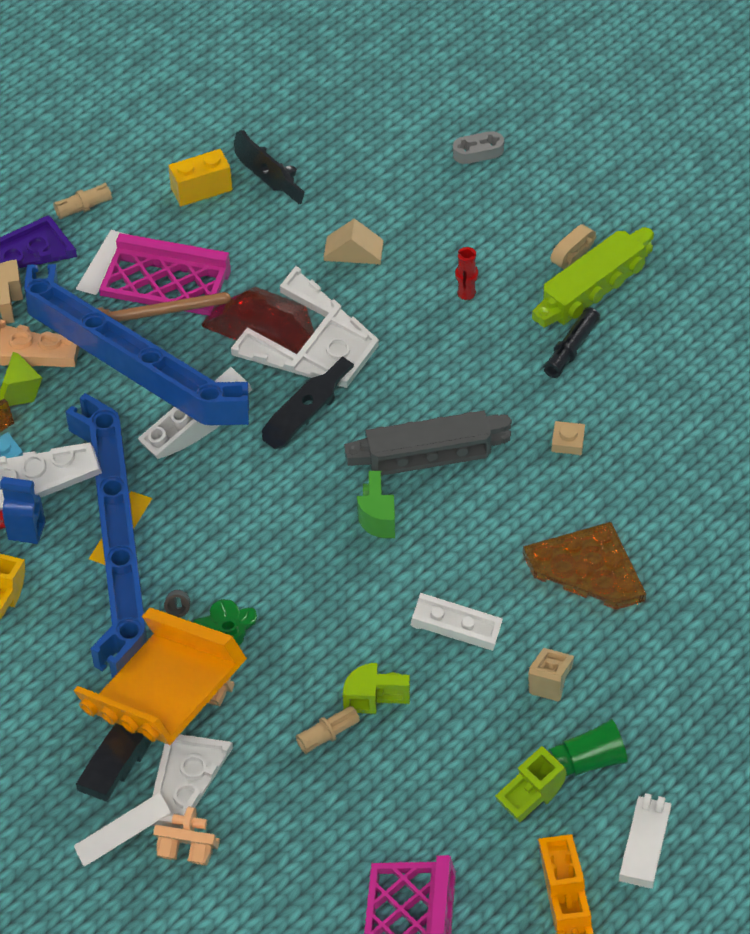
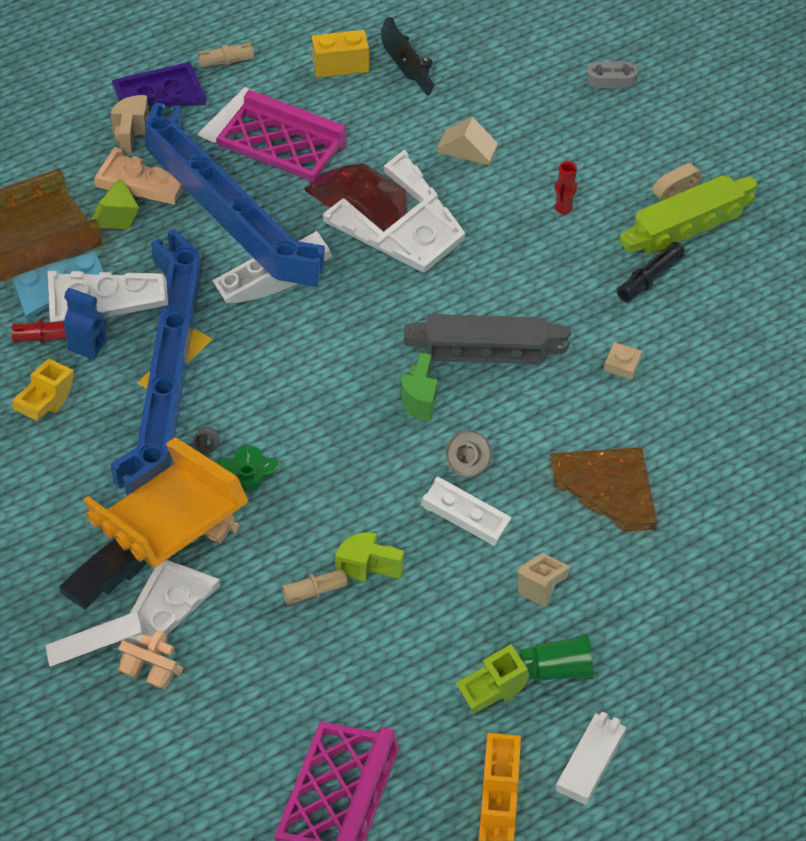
camera: 10 degrees right, 0 degrees up
(168, 307) = (274, 166): medium nougat piece -> none
(295, 413) = (368, 286): black piece -> none
(444, 563) = (468, 453): none -> dark tan plate

